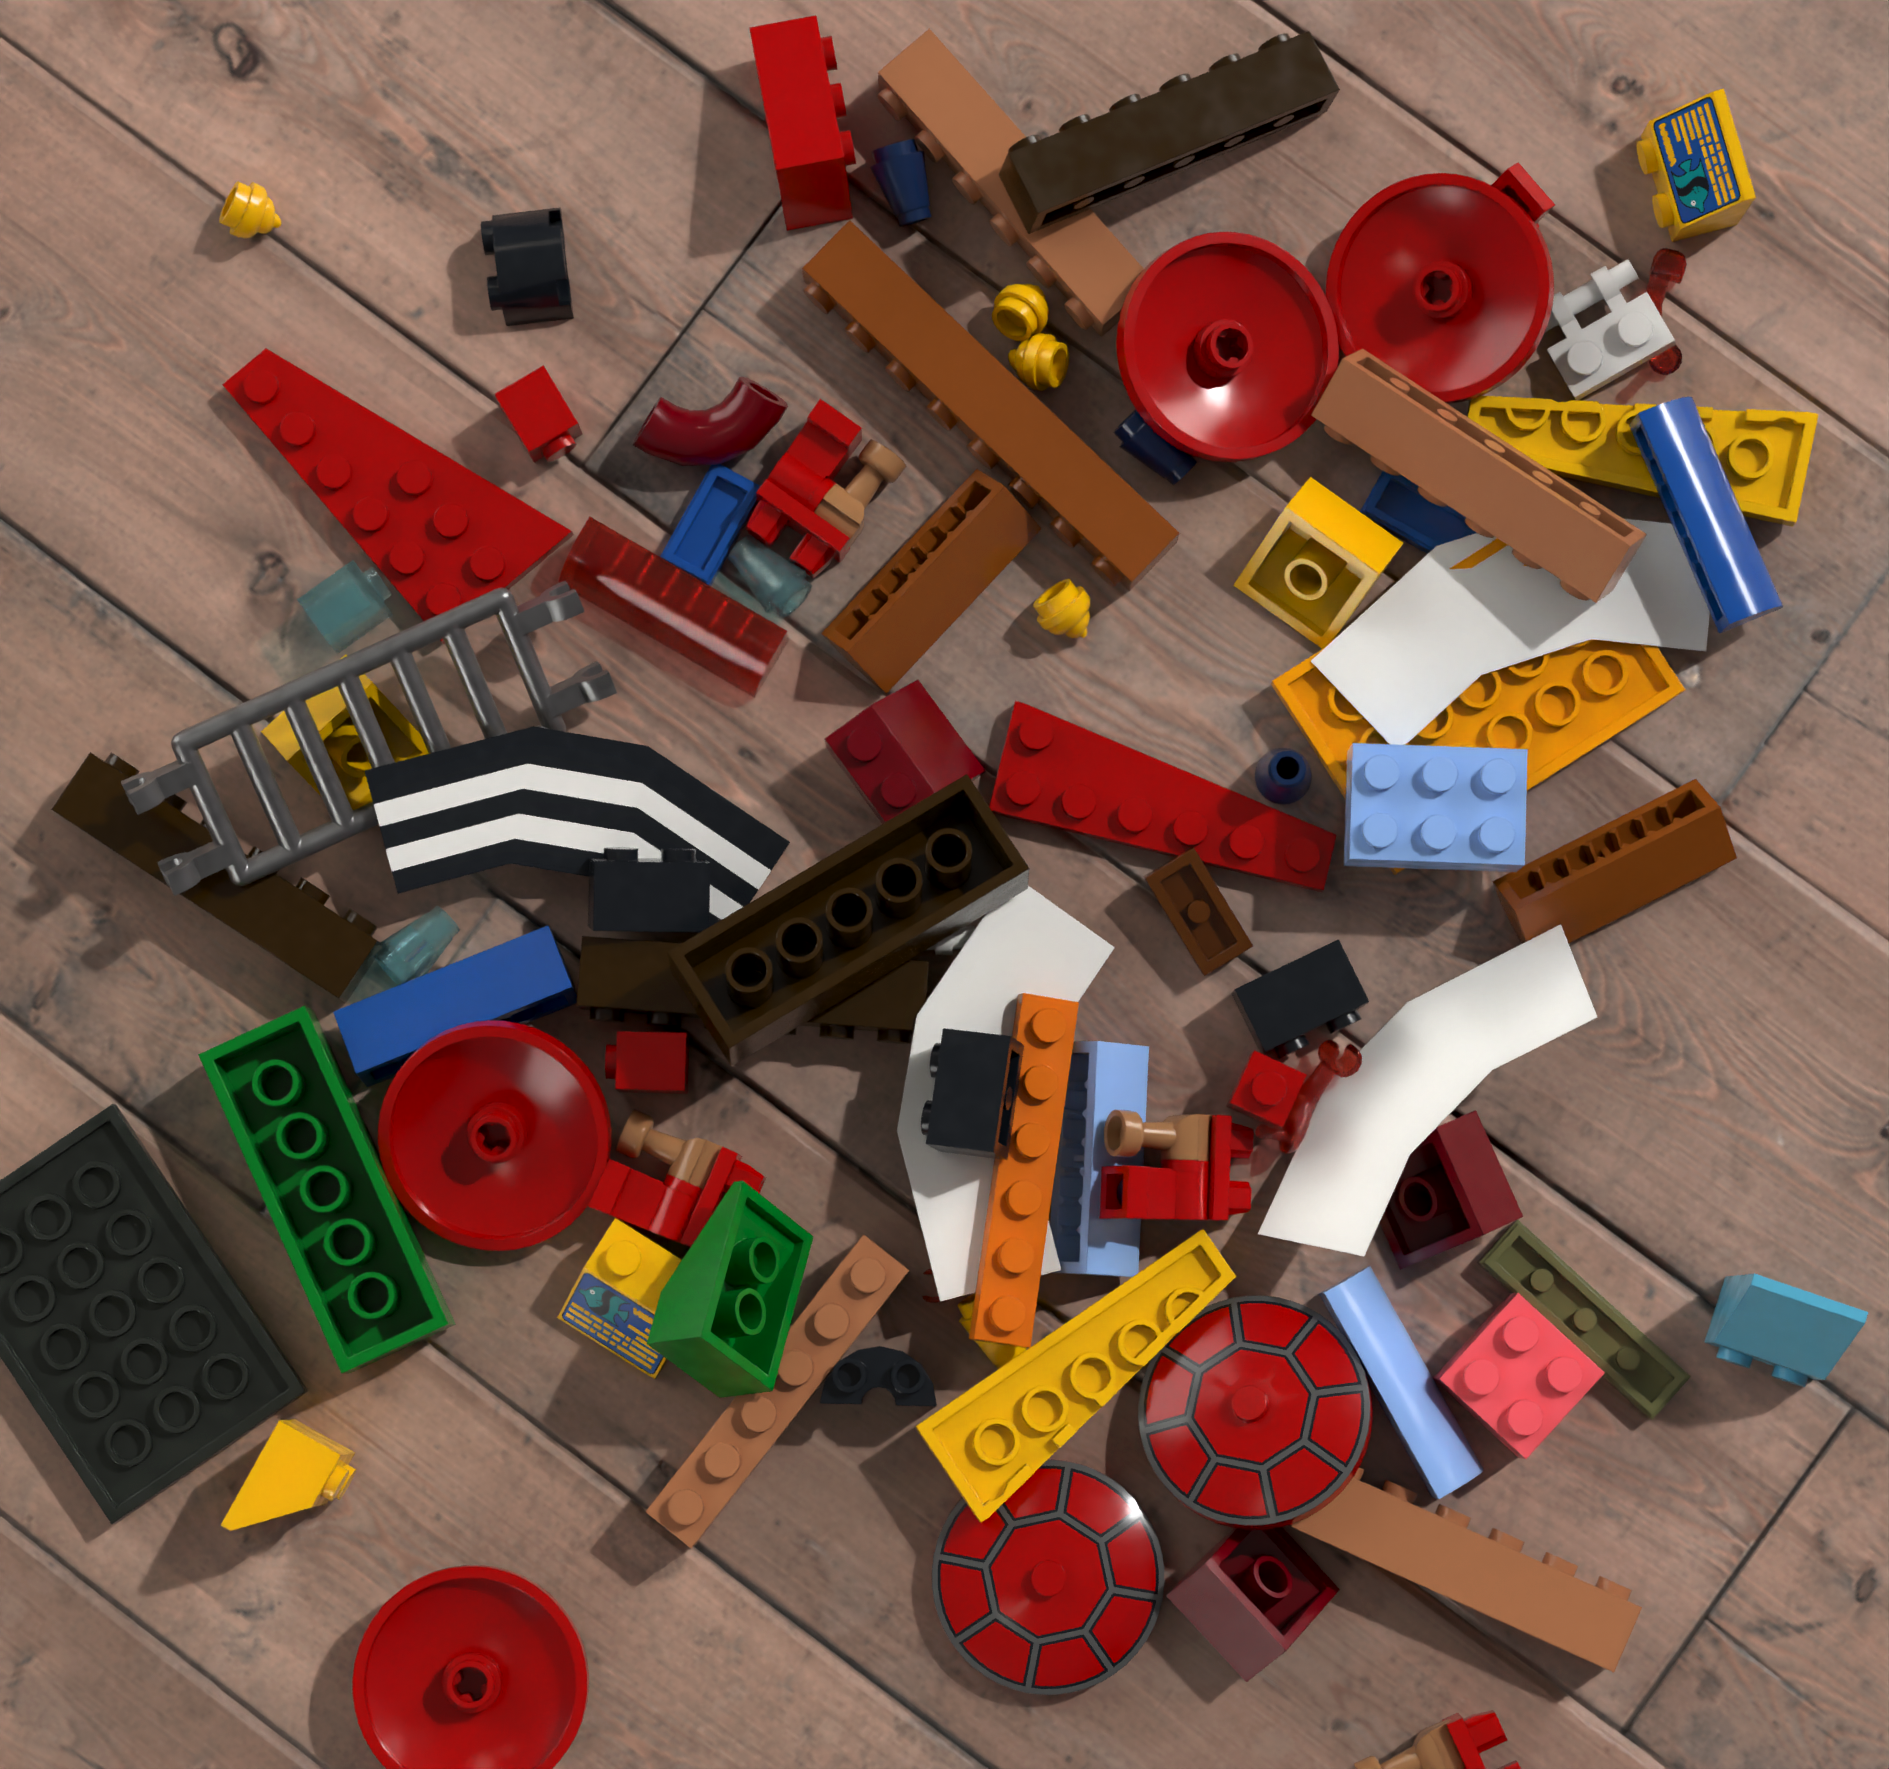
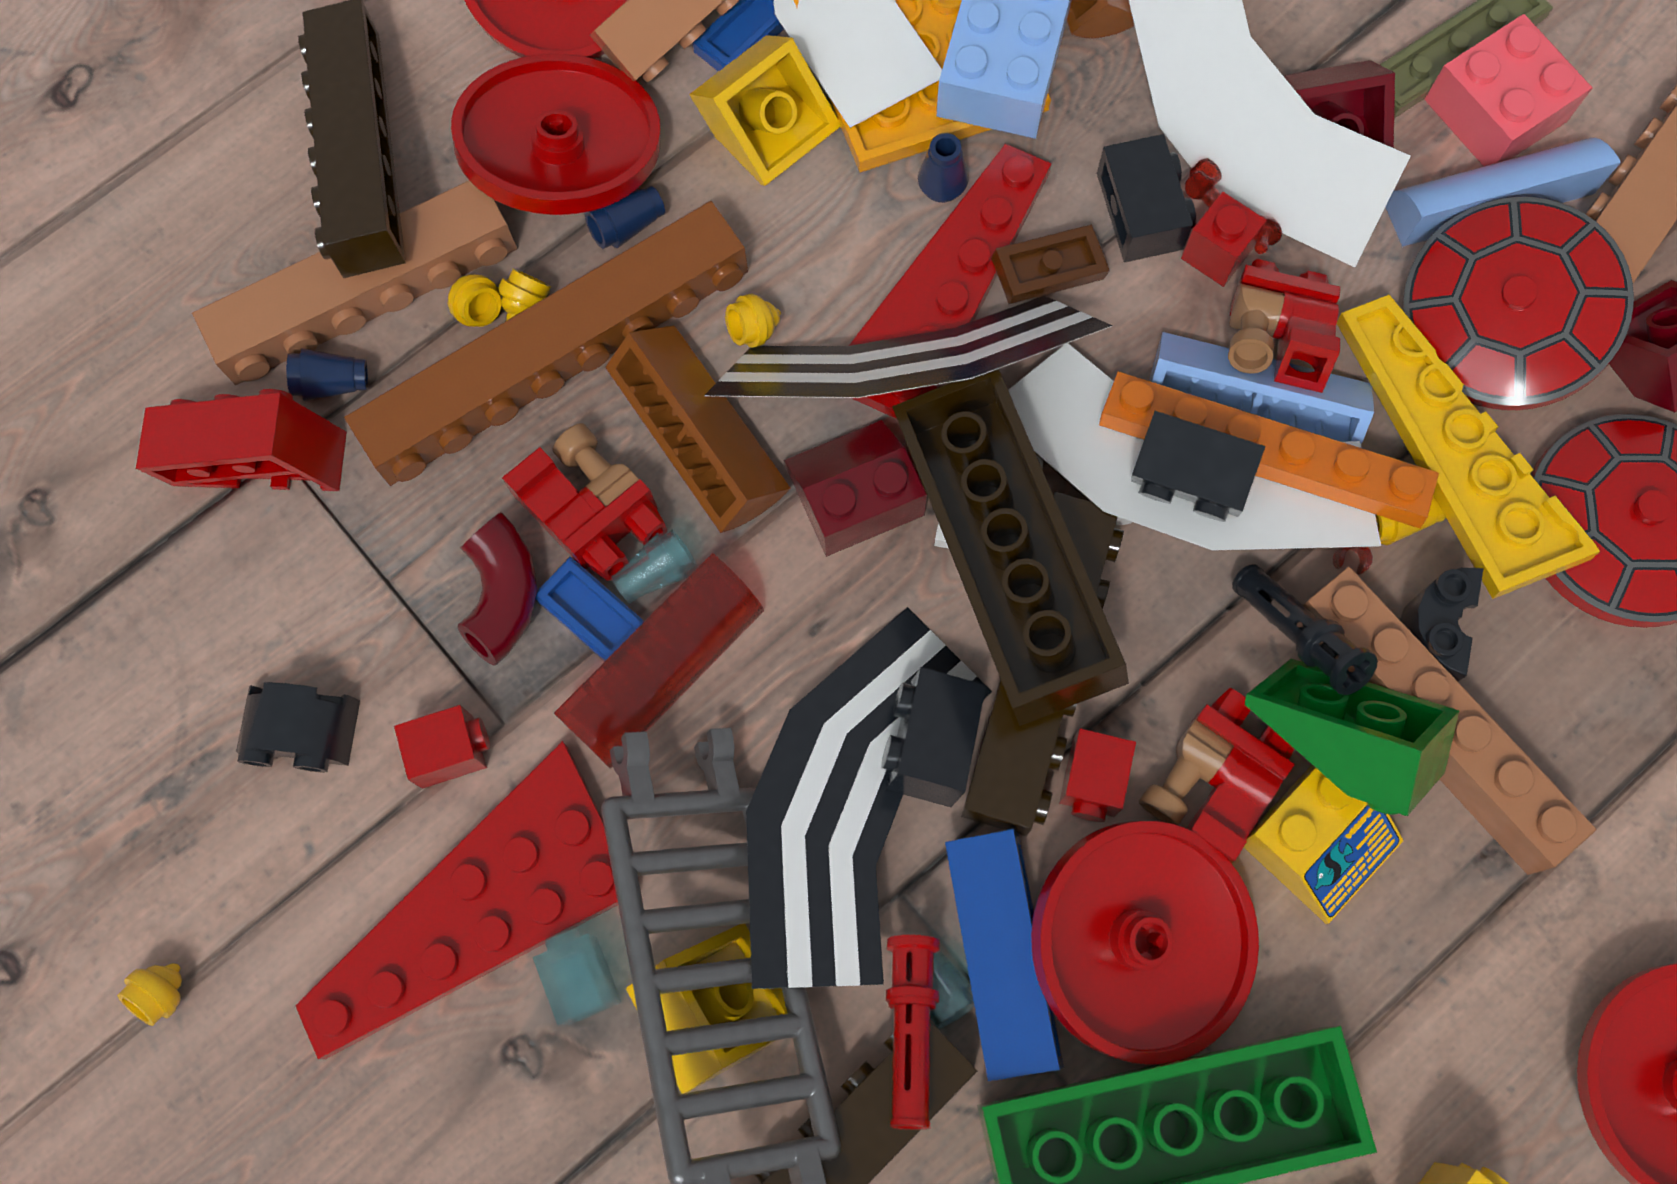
camera: 75 degrees left, 10 degrees down
(388, 922) = (912, 999): none -> red pin
(821, 1248) = (1261, 590): none -> black pin
(1029, 783) = (907, 360): none -> black sticker

